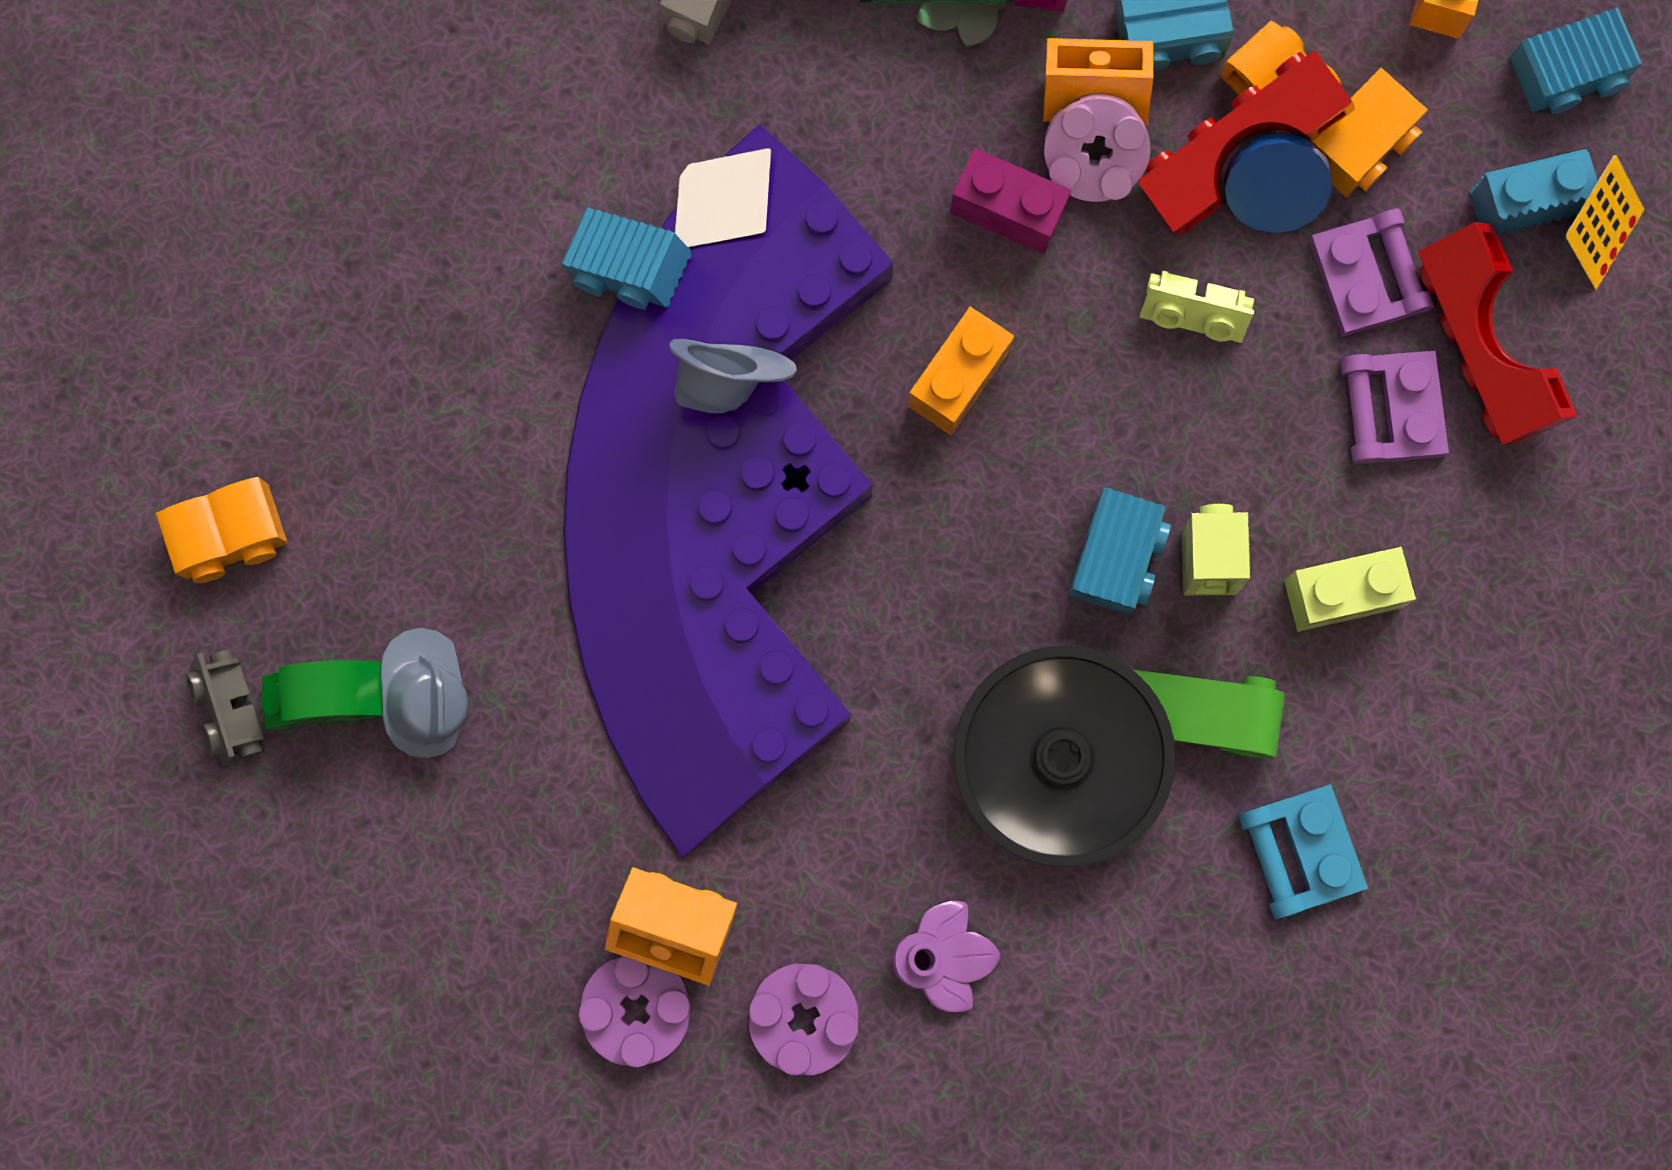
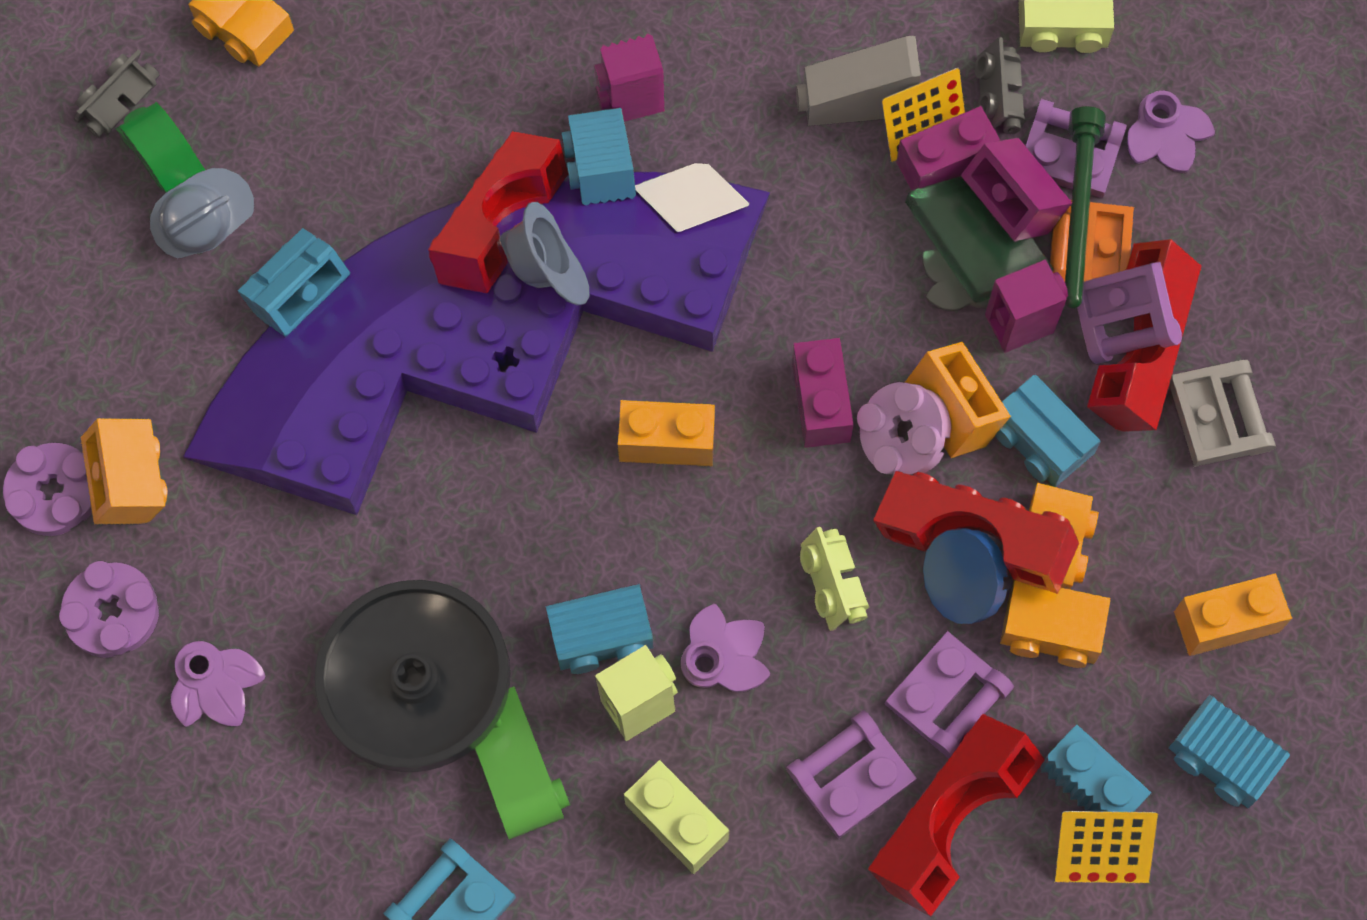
camera: 60 degrees right, 10 degrees down
(564, 176) = (631, 78): none -> magenta brick
(567, 640) = (294, 282): none -> dark azure brick
(660, 438) = (469, 246): none -> red arch
(1206, 444) = (730, 648): none -> medium lavender plate

